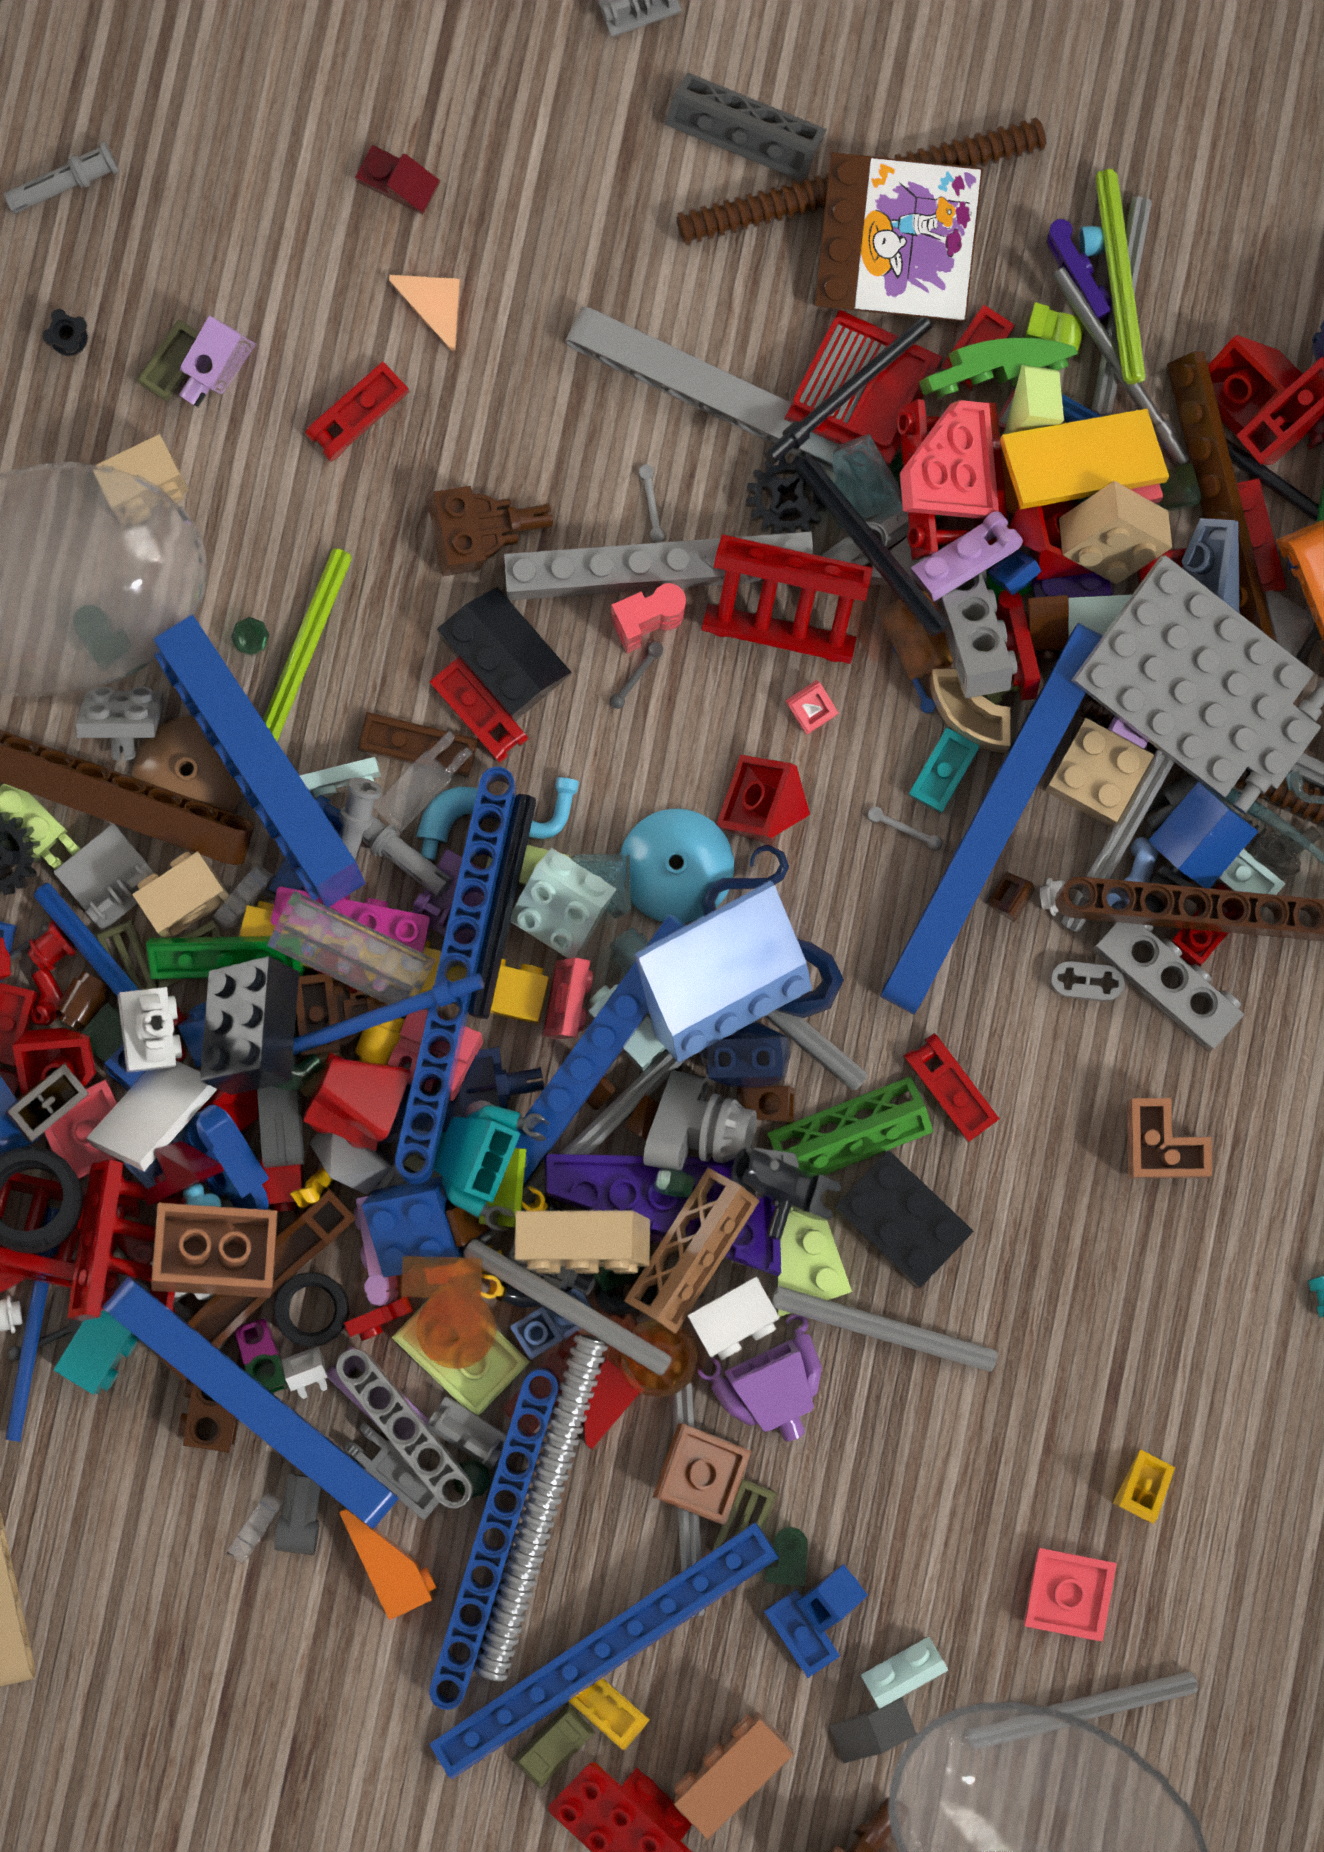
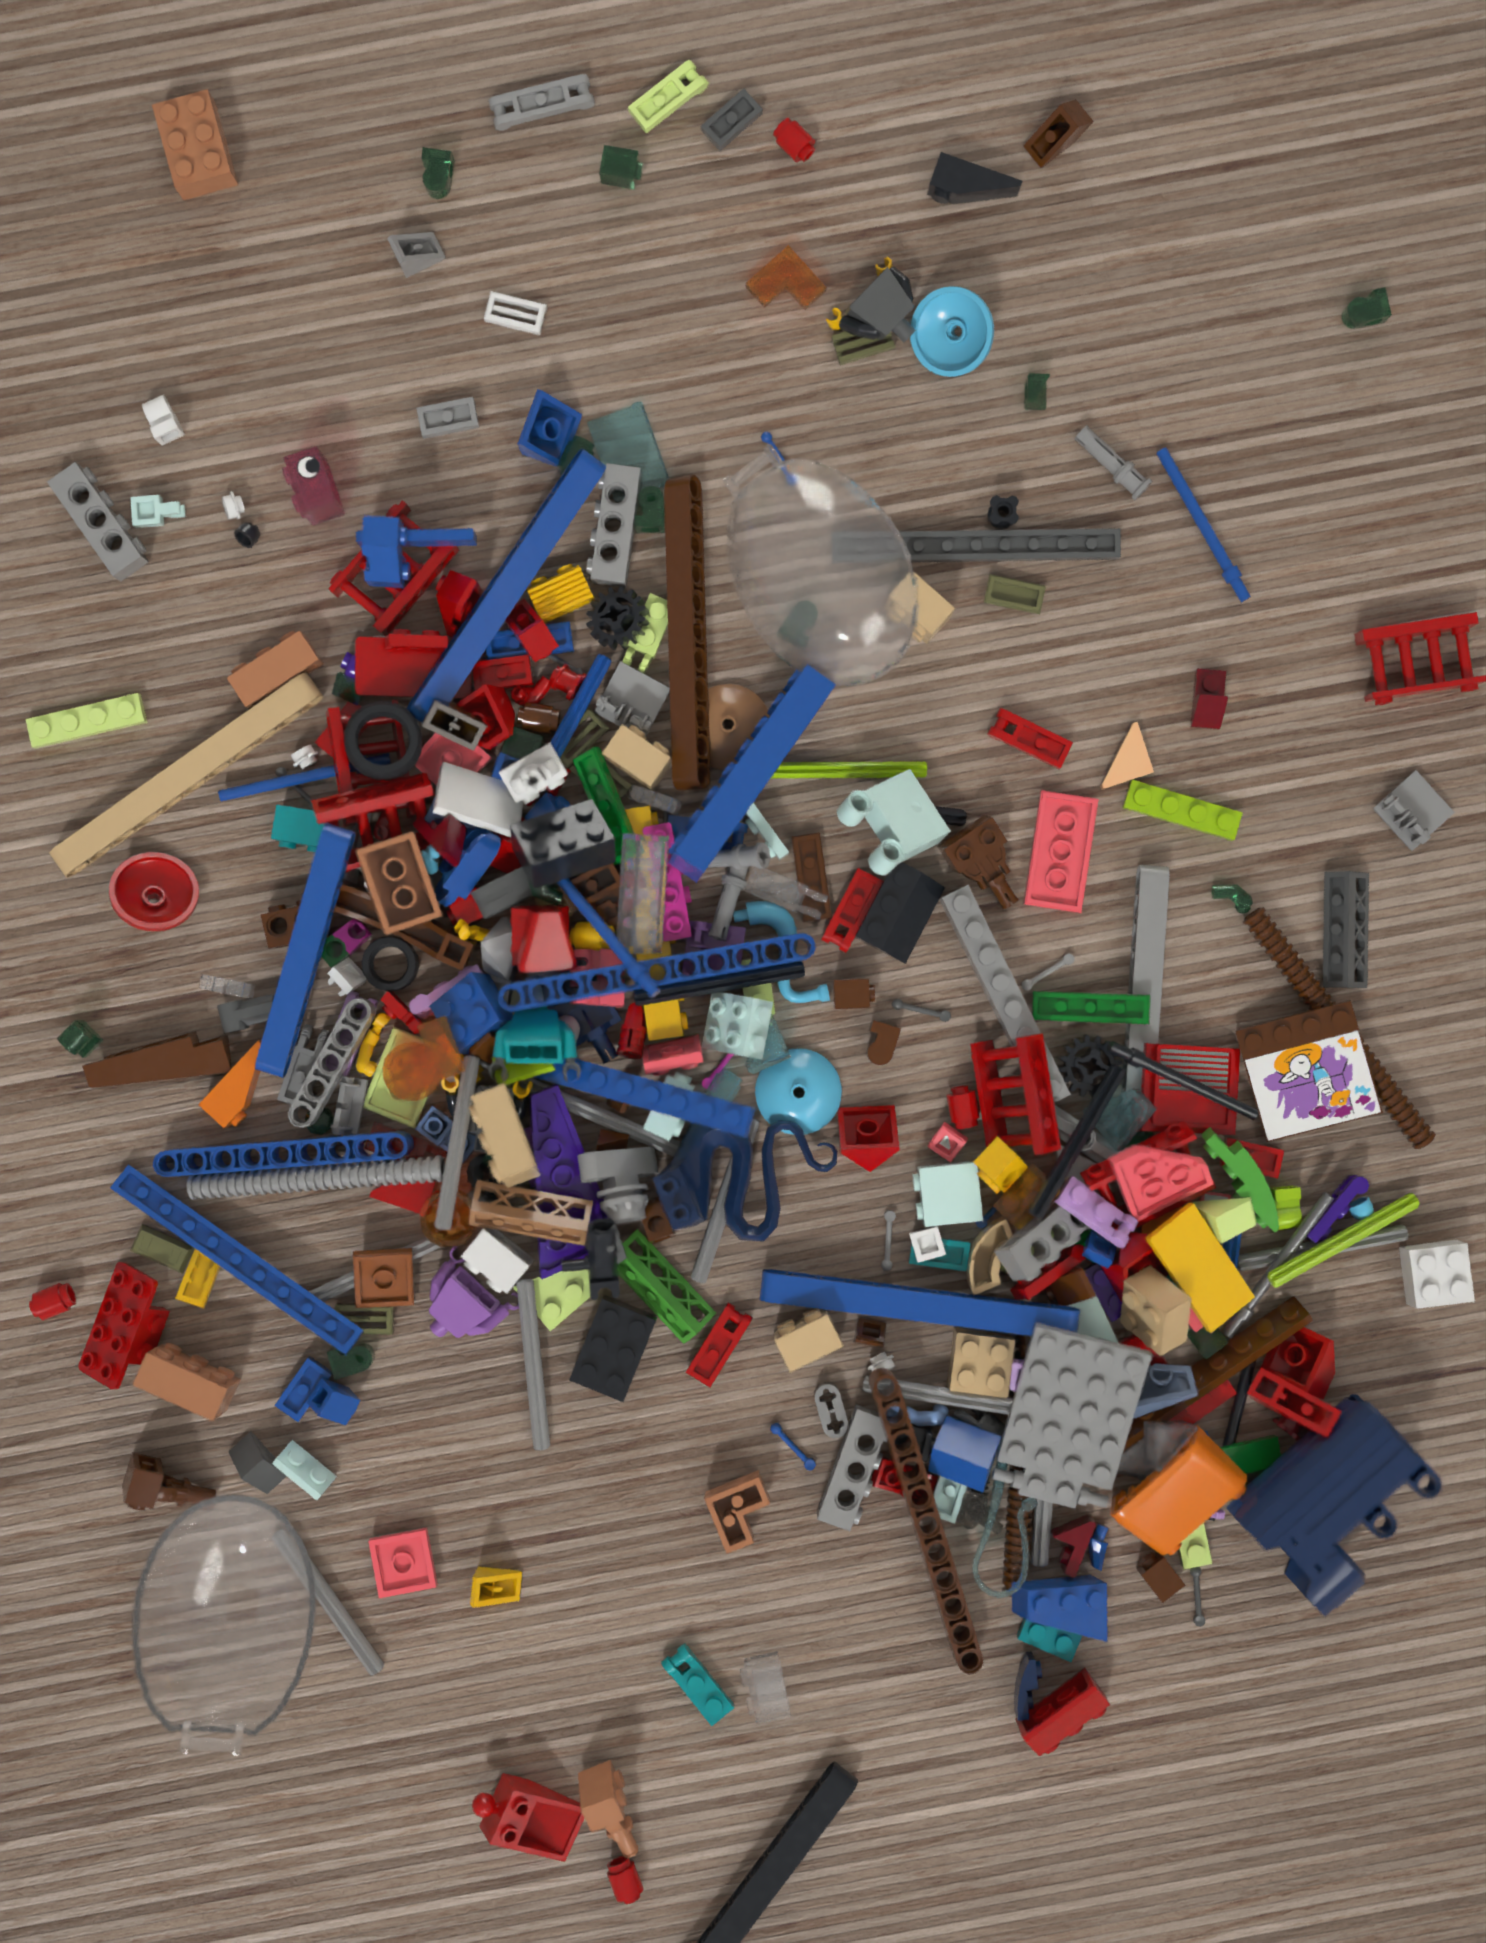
camera: 70 degrees right, 5 degrees up
(86, 1558) = (153, 877): none -> red dish
(113, 335) = (1013, 545): none -> dark grey plate
(120, 717) = (746, 662): light grey plate -> none
(224, 349) = (1037, 624): lavender torso -> none
(245, 1741) = (79, 1038): none -> clear green leg
(250, 636) = (840, 729): clear green tile -> none
(256, 92) = (1230, 573): none -> blue bar
(315, 1648) = (162, 1060): none -> reddish brown wedge
(389, 604) = (900, 818): none -> light aqua piece
(408, 1384) = (371, 1039): none -> yellow arm
(510, 429) = (1060, 851): none -> coral tile
(515, 1033) = (632, 1033): none -> red hinge
(520, 264) = (1182, 810): none -> lime plate
(582, 749) = (853, 993): none -> reddish brown brick
(618, 972) = (706, 1081): none -> dark pink hinge
(640, 615) = (963, 996): coral legs -> none
(647, 240) = (1236, 894): none -> clear green arm
(658, 735) = (884, 1044): none -> reddish brown leg
(674, 1183) = (572, 1182): clear green tile -> none
(716, 466) = (1091, 1007): none -> green tile
(722, 972) = (728, 1161): slope -> none
(776, 670) = (963, 1107): none -> red brick
(865, 651) = (999, 1166): none -> yellow brick
(875, 729) = (948, 1194): none -> light aqua brick
(925, 778) = (927, 1243): none -> white plate
(985, 971) = (807, 1338): none -> tan brick
(1143, 1036) = (809, 1463): none -> blue hinge
(1206, 182) = (1436, 1274): none -> white brick
(1279, 585) = (1164, 1440): none -> clear slope

